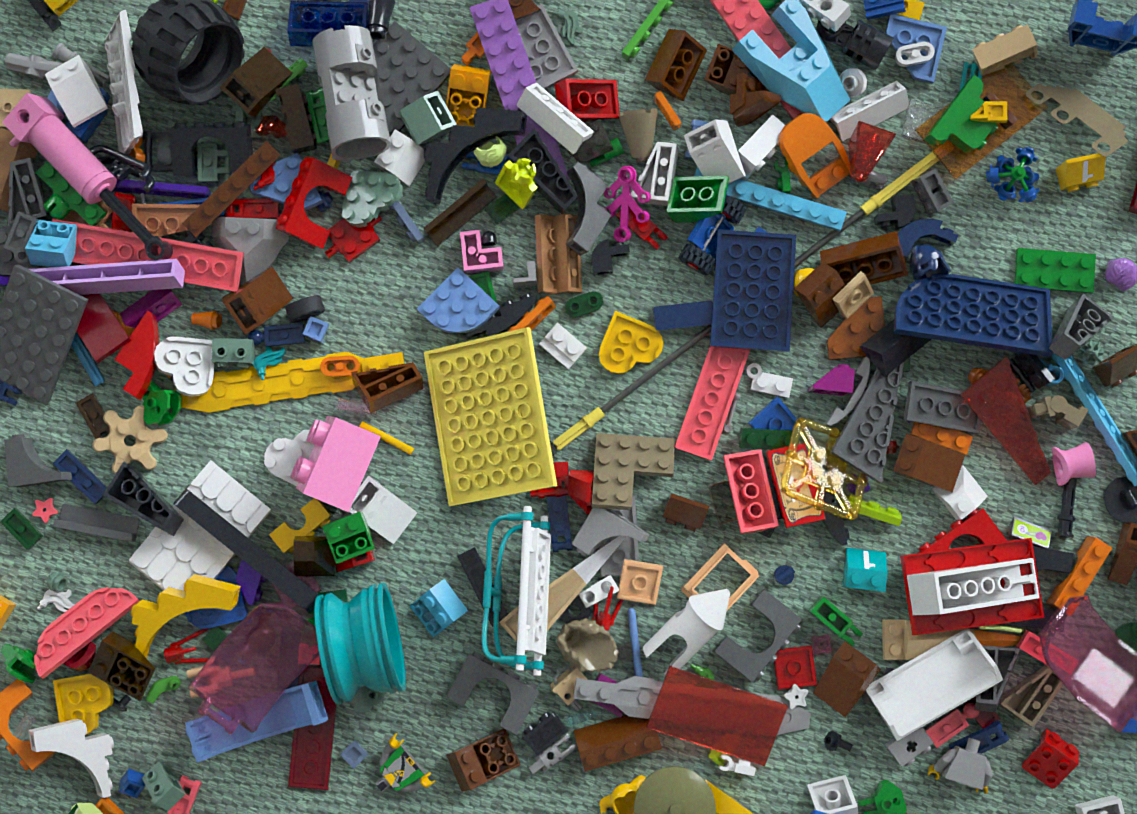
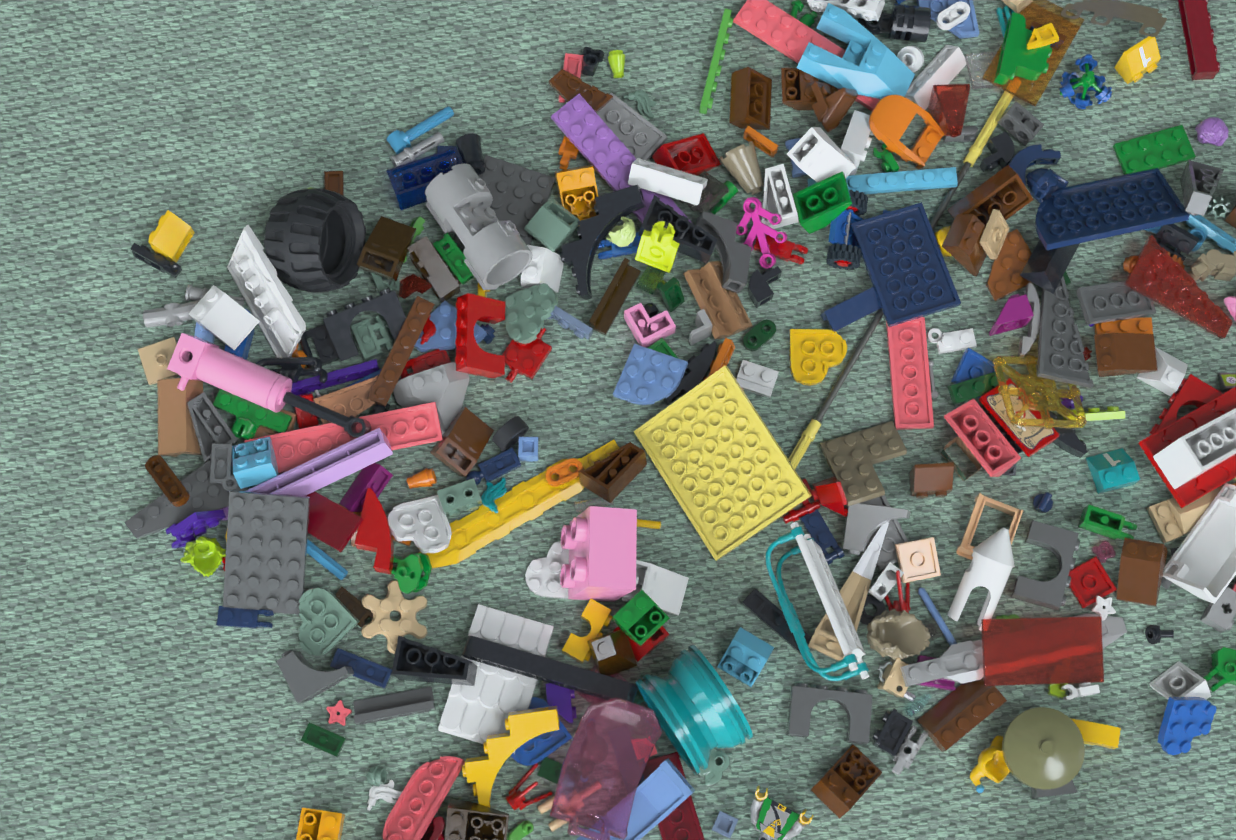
camera: 25 degrees left, 10 degrees down
(62, 419) = (324, 621): none -> sand green plate
(513, 231) = (671, 293): none -> dark green tile

